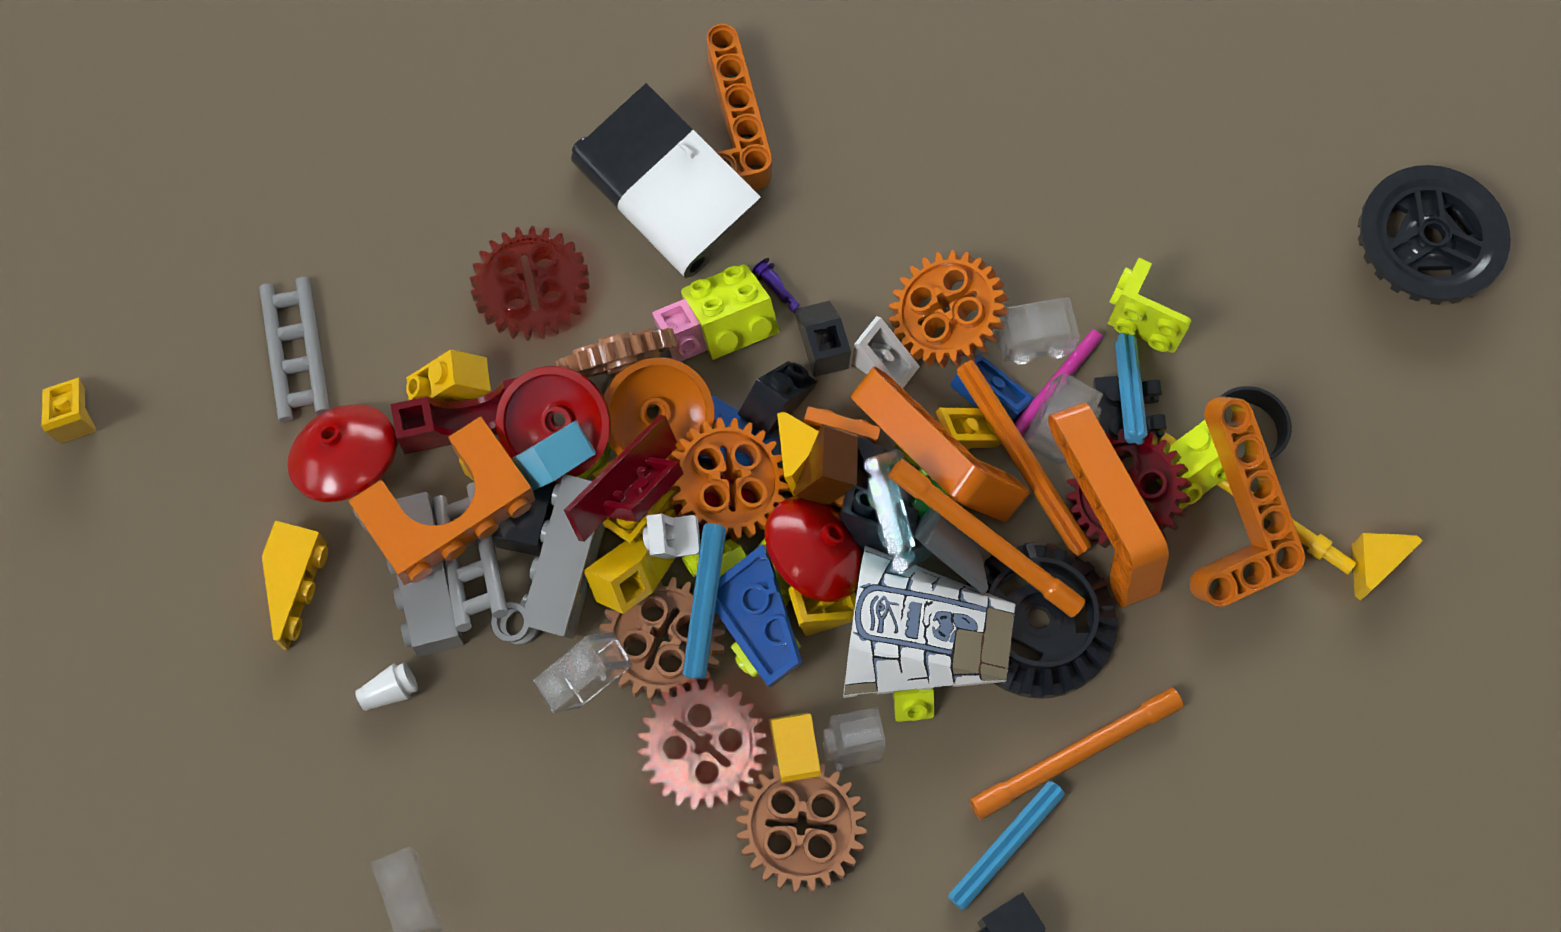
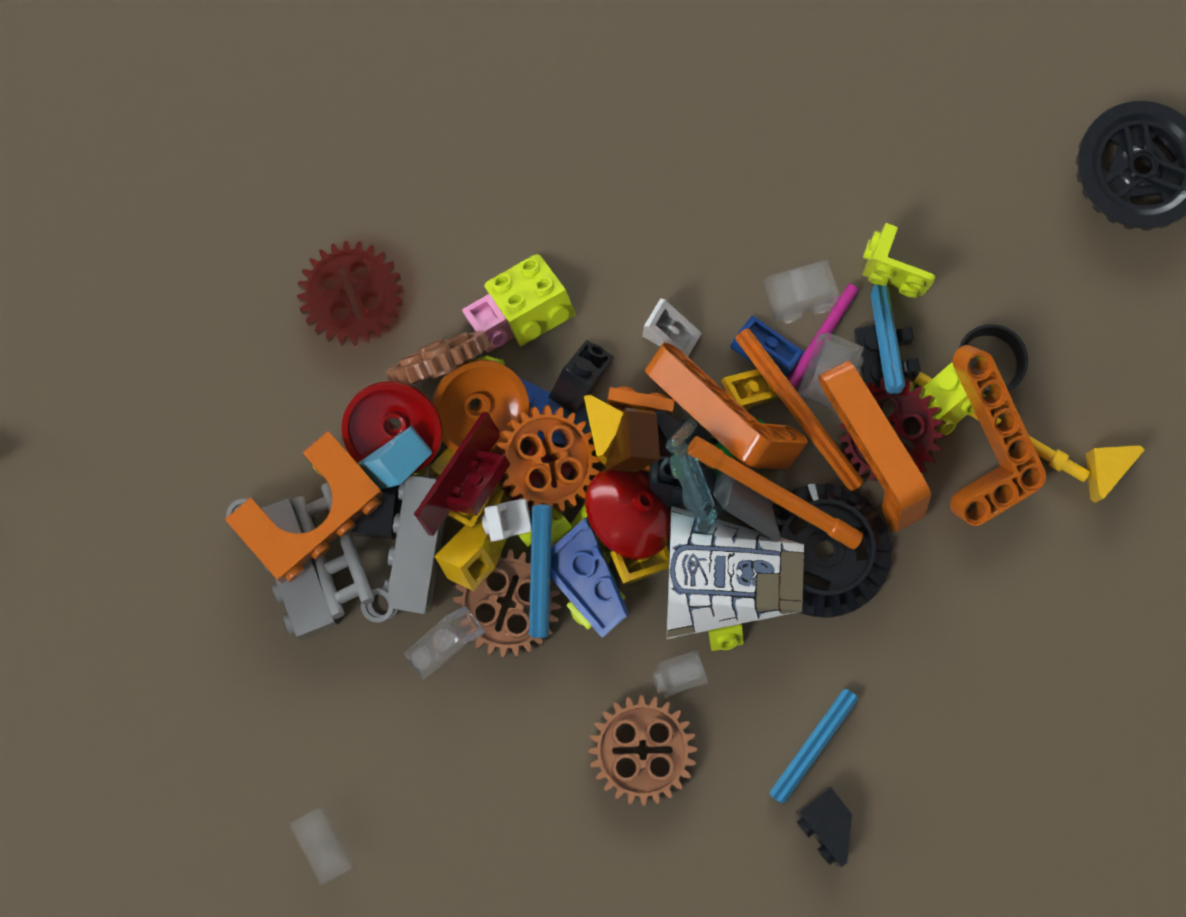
camera: 10 degrees left, 10 degrees up
(289, 572) = (179, 578): yellow slope -> none
(312, 362) = (143, 394): light grey bar -> none
(342, 453) = (217, 478): red dish -> none
(388, 687) = (279, 670): white cone -> none
(429, 422) = (294, 431): dark red arch -> none
(451, 378) = (291, 394): yellow slope -> none
(664, 179) = (458, 184): door -> none
(679, 773) = (535, 716): clear red gear -> none
(738, 120) = (516, 121): orange beam -> none
(771, 278) = (565, 267): dark purple piece -> none
(795, 747) = (630, 684): yellow slope -> none
(823, 338) = (615, 317): black slope -> none
(936, 282) = (710, 255): orange gear -> none
(1005, 792) = (809, 702): orange piece -> none

